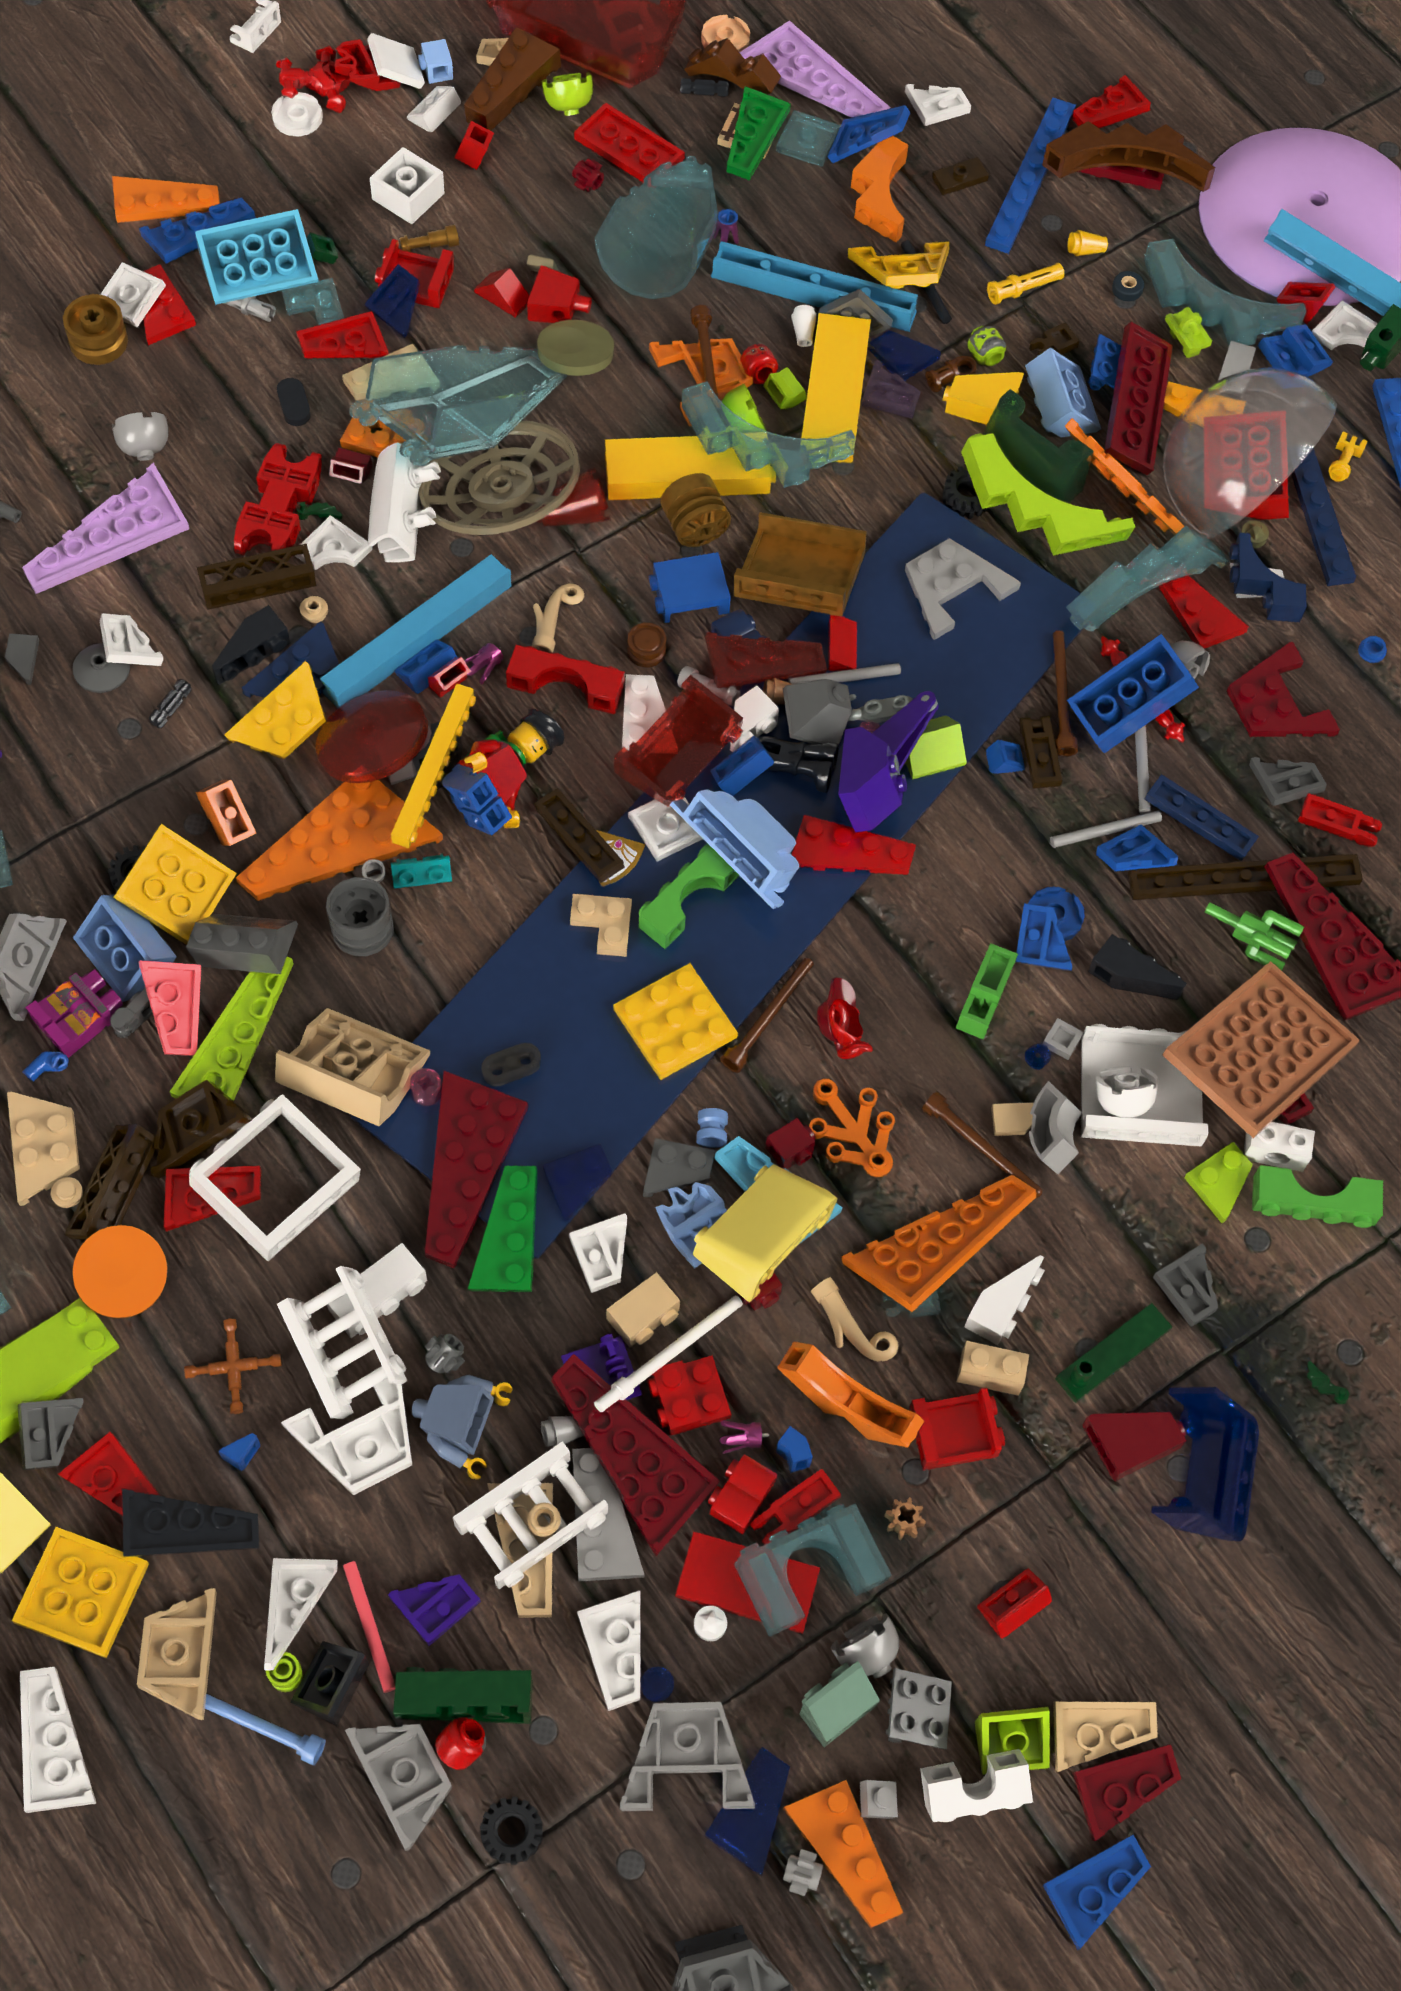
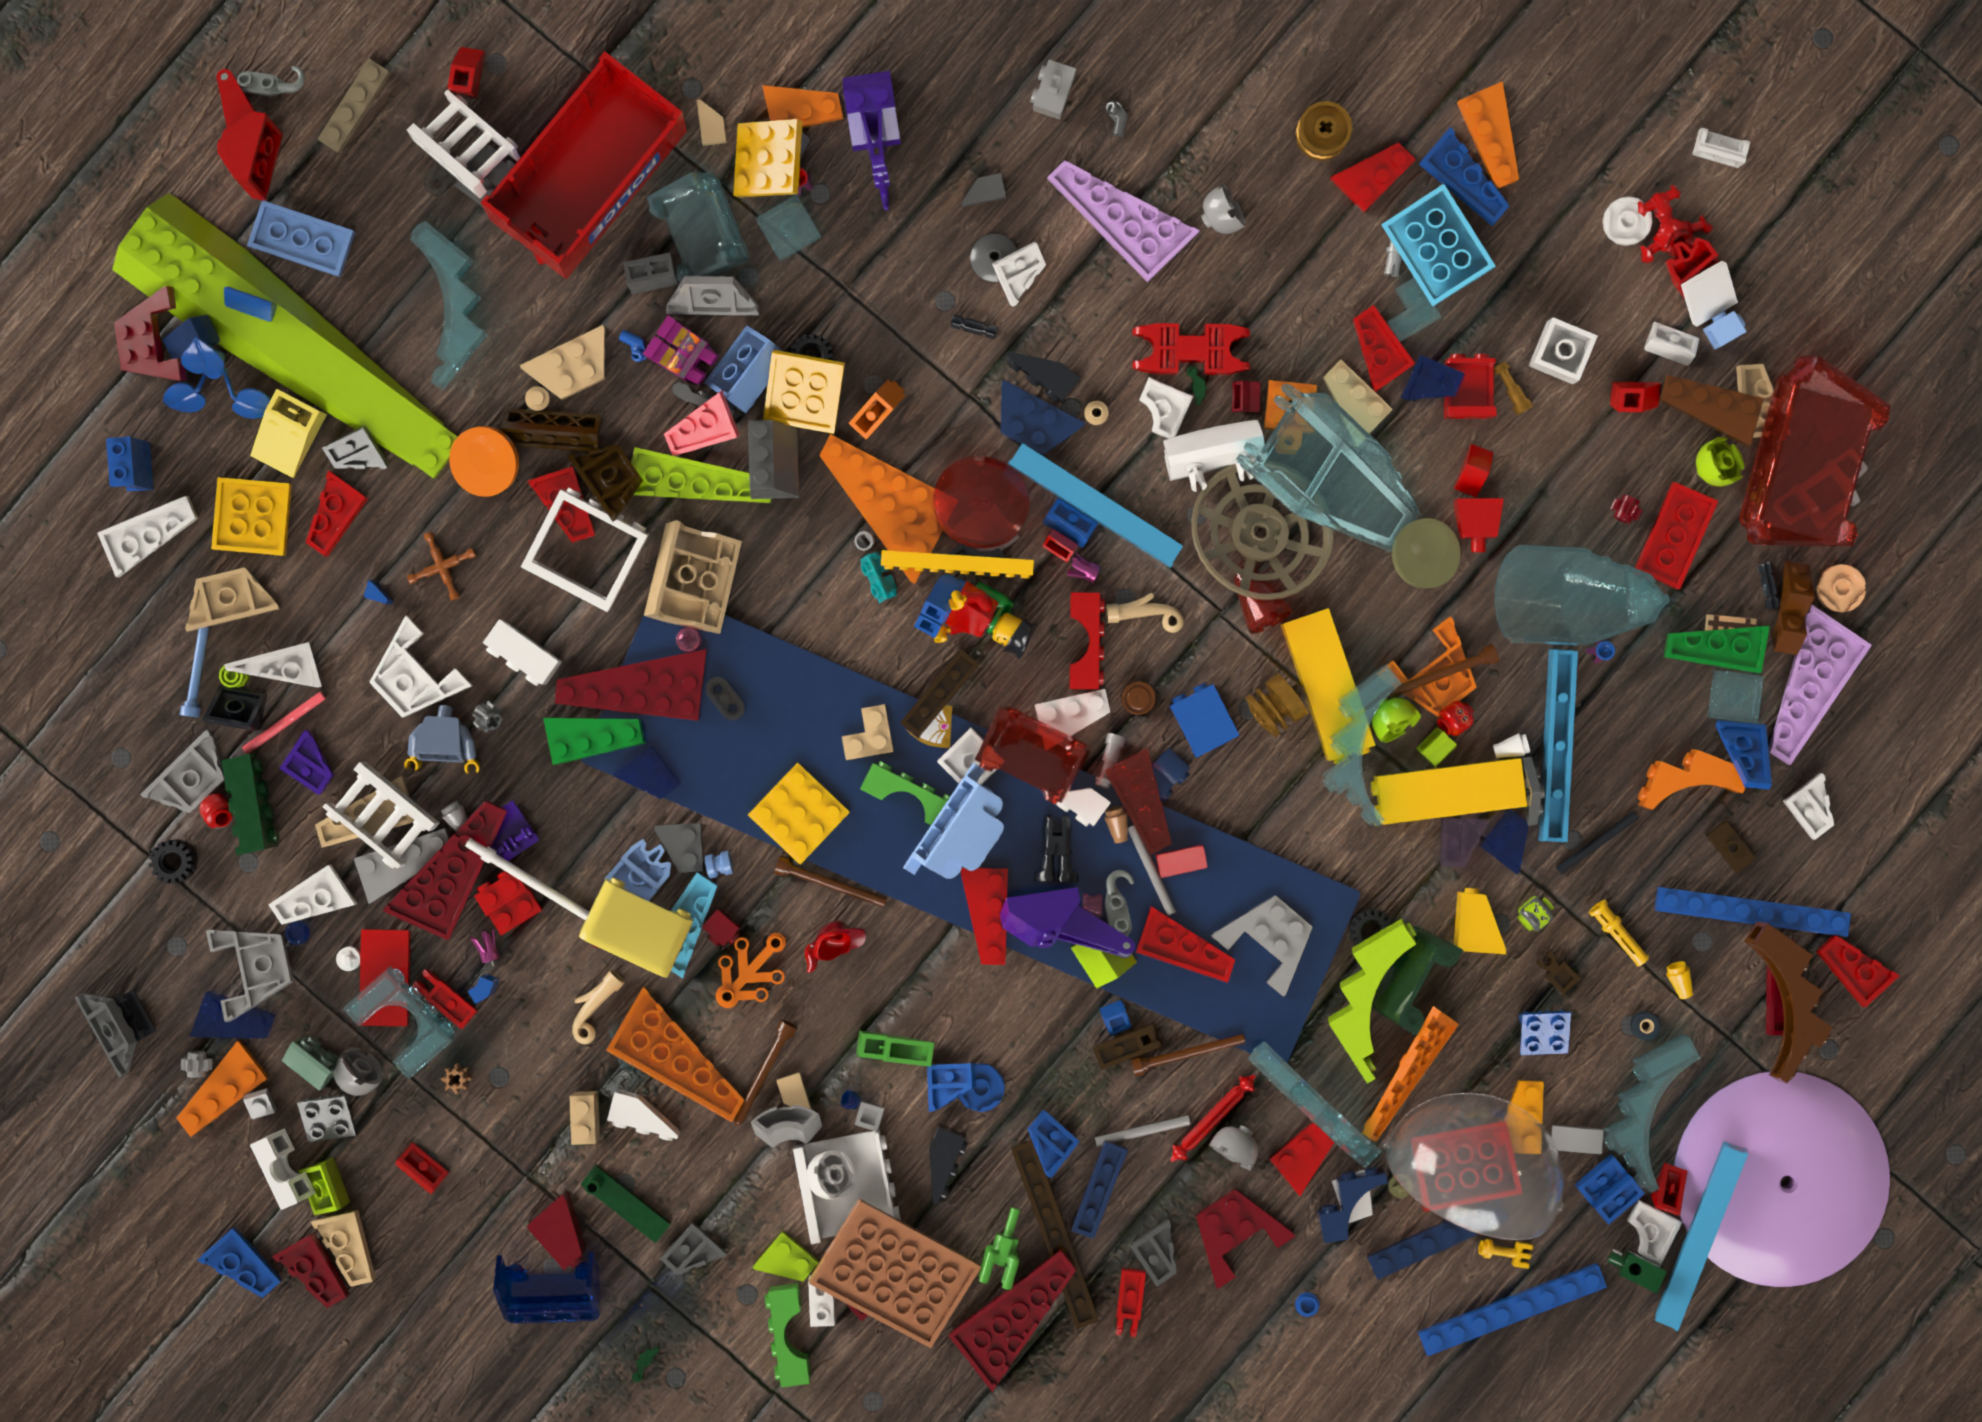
camera: 80 degrees right, 25 degrees up
(133, 292) = (1372, 146): white tile -> none
(175, 1526) = (311, 571): black wing -> none
(254, 586) = (1102, 359): dark brown fence -> none
(282, 717) = (983, 423): yellow wing -> none
(293, 401) = (1302, 325): black tile -> none
(311, 1343) = (455, 627): white fence -> none
(322, 248) = (1473, 296): dark green plate -> none
(360, 916) = (810, 531): dark grey wheel -> none
(534, 263) = (1510, 497): dark tan tile -> none
(540, 1510) = (367, 826): tan plate -> none
(601, 1251) = (598, 807): white wing -> none
(643, 1310) = (560, 852): tan brick -> none
(742, 766) = (1035, 808): blue slope -> none
(742, 1494) = (443, 958): red brick -> none
(801, 564) = (1246, 808): pearl gold panel -> none
(817, 710) = (1099, 857): dark grey slope -> none
(843, 1396) = (528, 1017): orange arch -> none
(903, 269) = (1594, 825): yellow wing -> none
(943, 662) = (1175, 944): none -> red wing
(945, 374) = (1496, 889): reddish brown connector -> none
(957, 1430) = (534, 1100): red panel -> none
(1061, 393) = (1498, 992): light blue slope -> none
(1105, 829) = (1070, 1112): light grey bar -> none
(1132, 693) = (1189, 1113): blue brick -> none
(1138, 398) = (1512, 1060): dark red plate -> none
(1188, 330) = (1601, 1090): lime hips -> none

